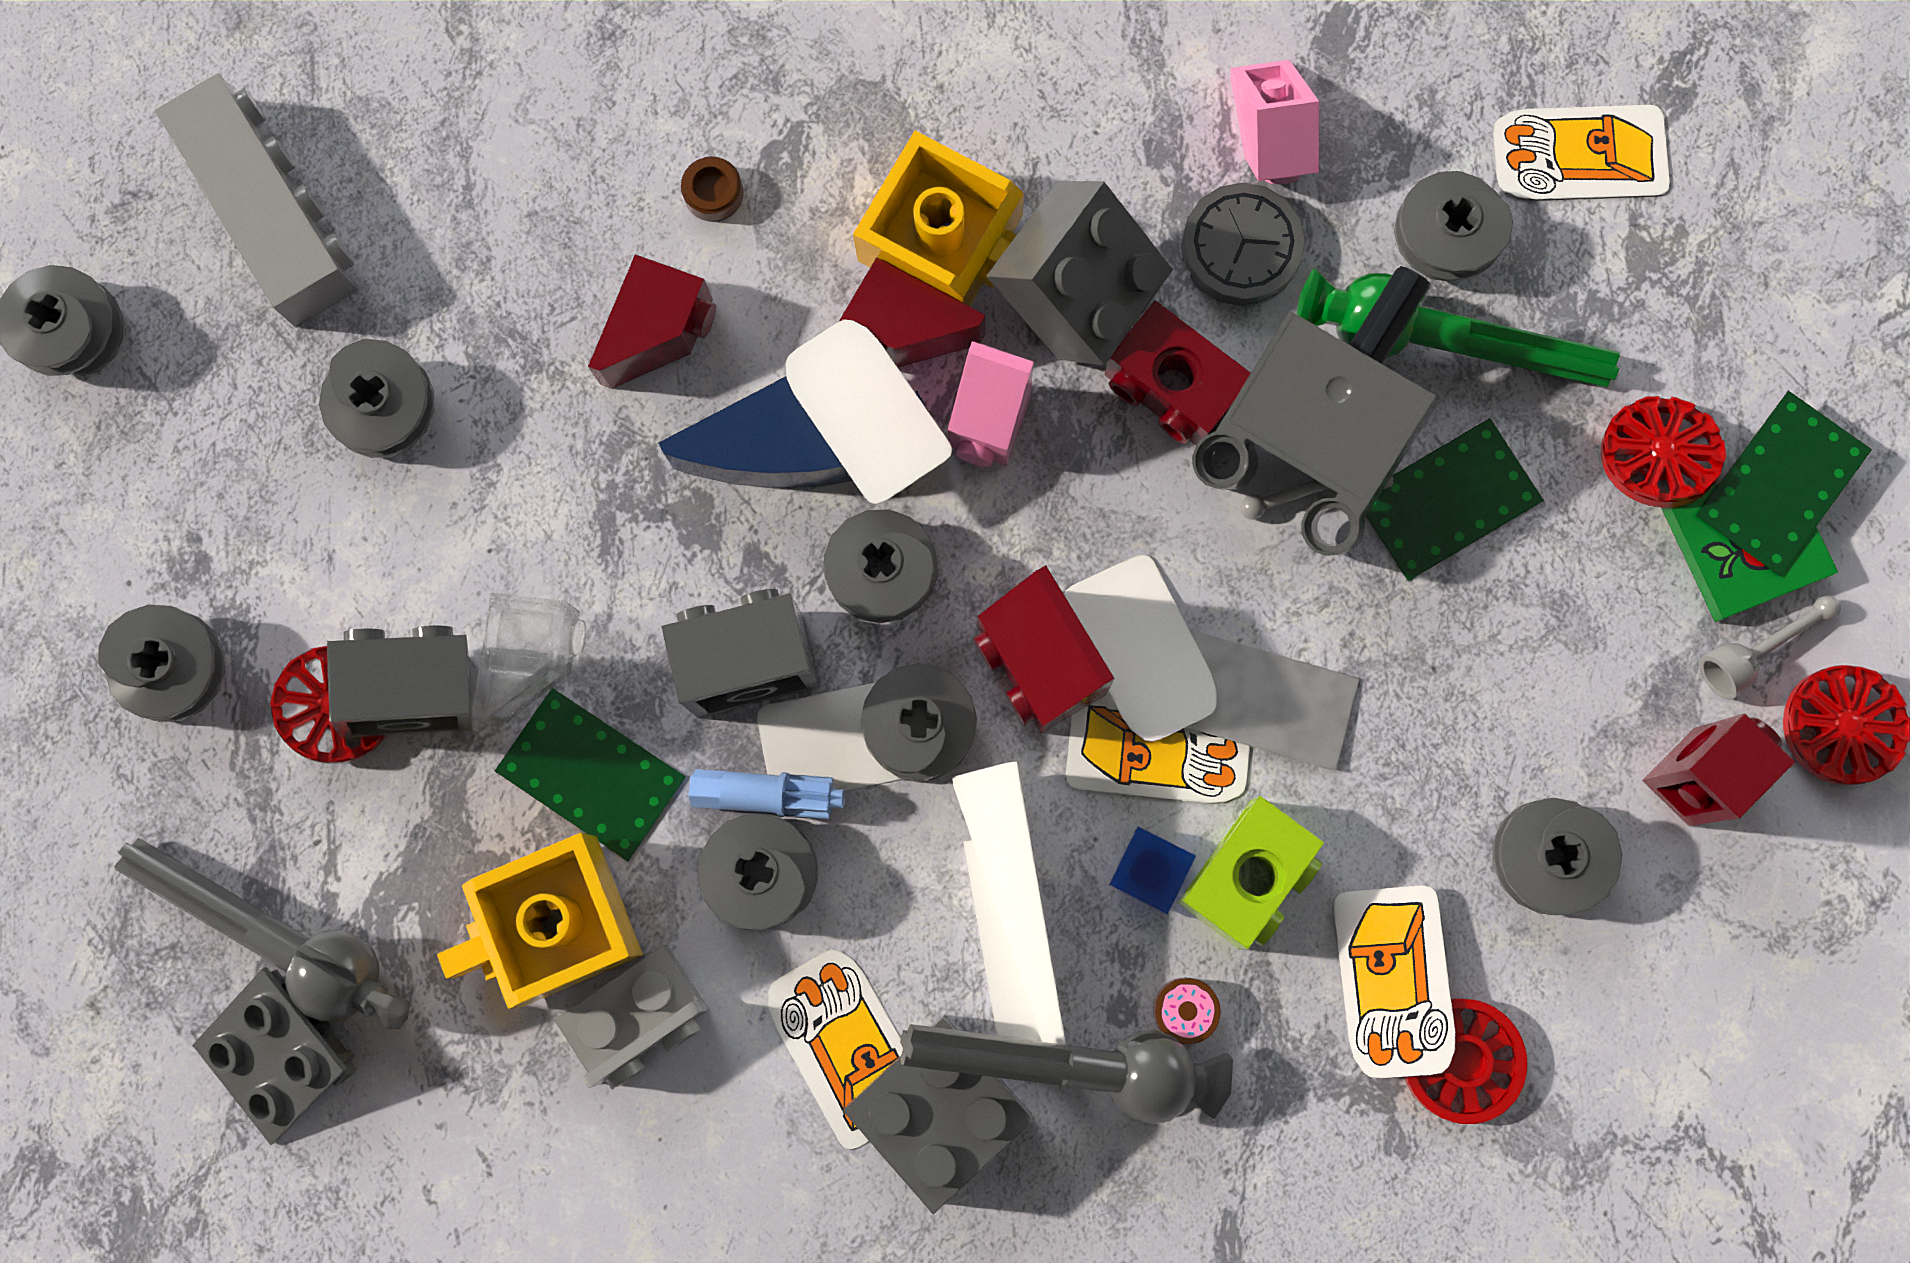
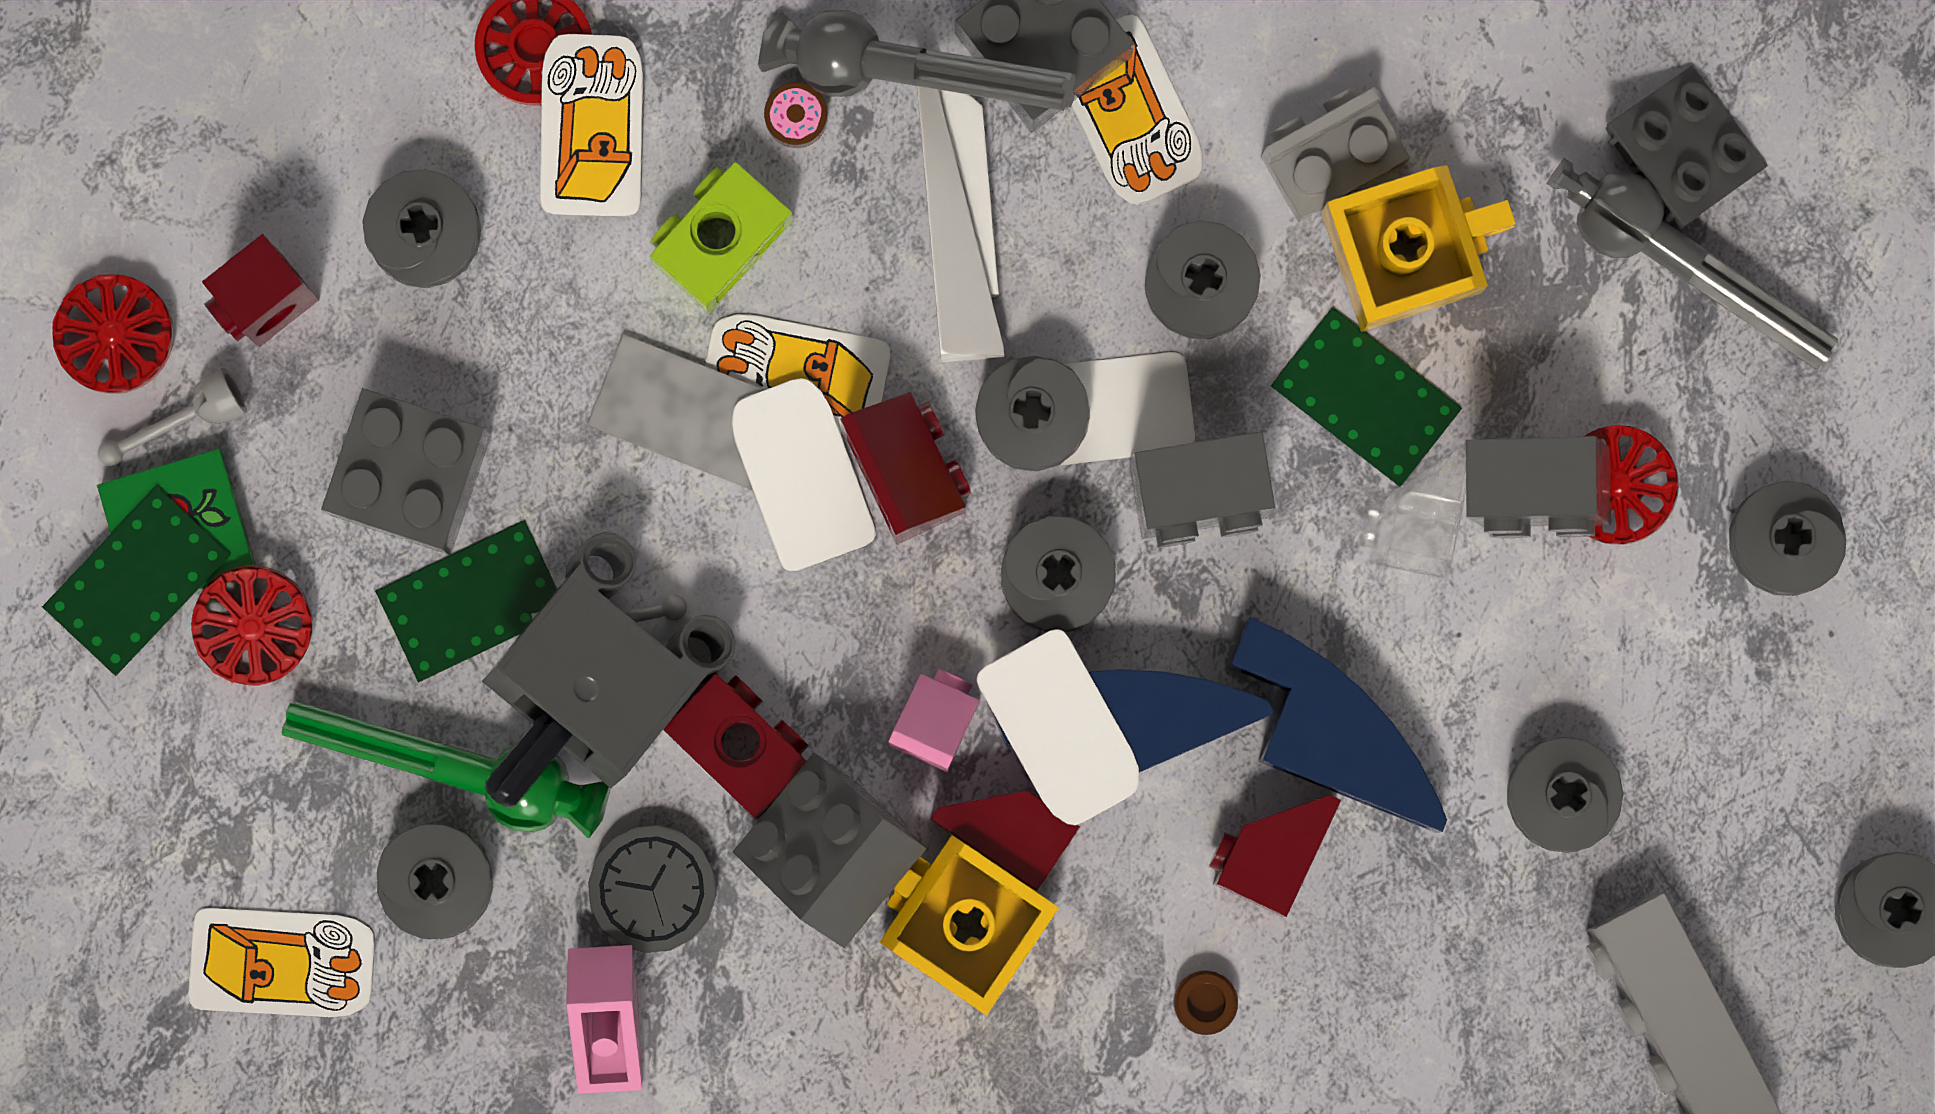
camera: 175 degrees right, 5 degrees up
(604, 440) = (1334, 730): none -> dark blue slope
(765, 793) = (1189, 358): light blue piece -> none
(1152, 870) = (816, 249): clear blue plate -> none
(1538, 607) = (406, 471): none -> dark grey brick

